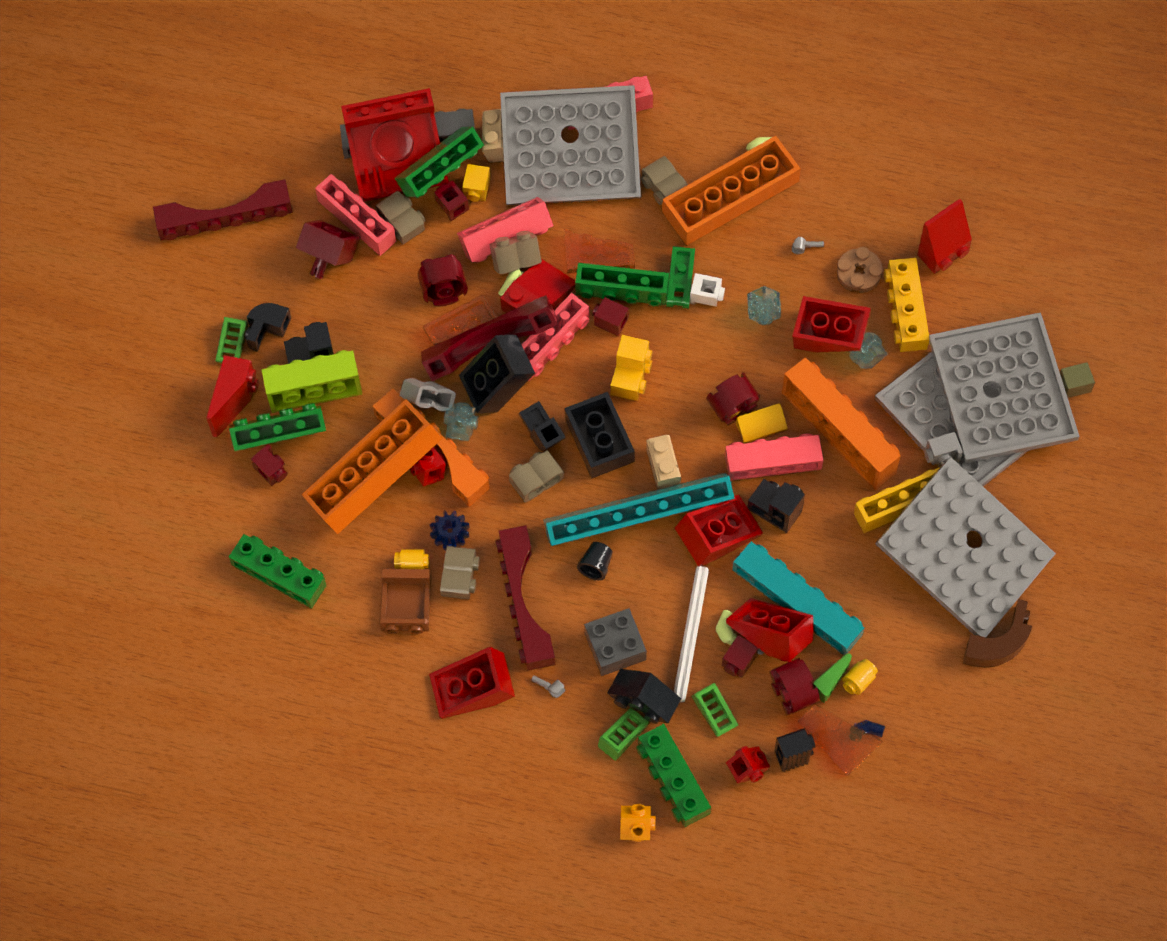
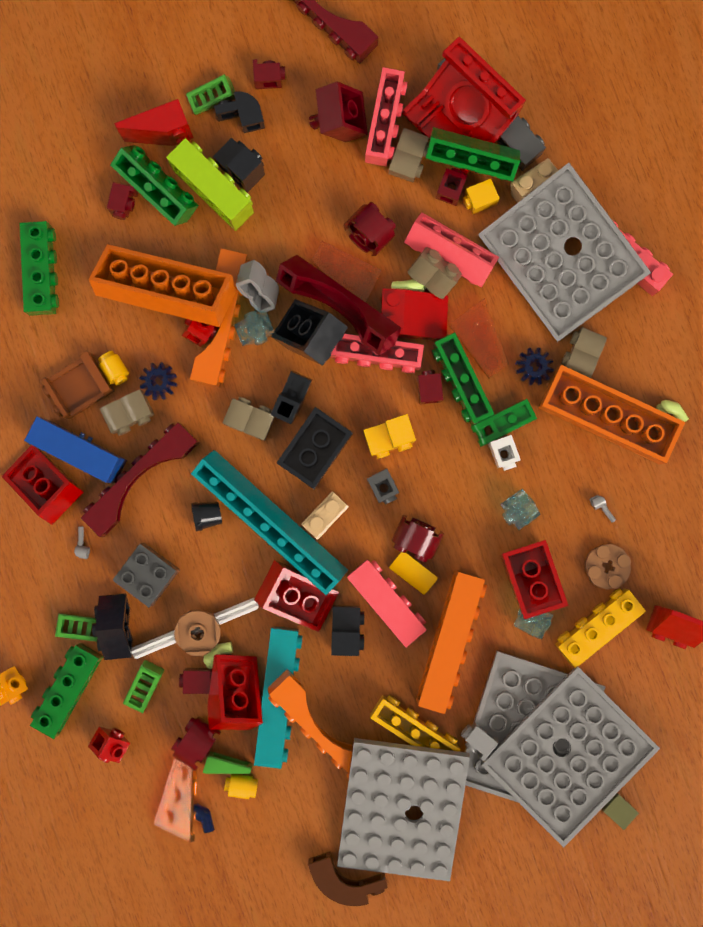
camera: 55 degrees right, 20 degrees up
(249, 285) = (268, 74): none -> dark red brick
(464, 630) = (75, 450): none -> blue brick
(649, 225) = (527, 370): none -> clear blue gear
(669, 395) = (383, 478): none -> dark grey brick
(692, 639) = (207, 640): none -> medium nougat plate
(794, 749) = (141, 776): black brick -> none
(806, 573) = (291, 696): none -> orange arch

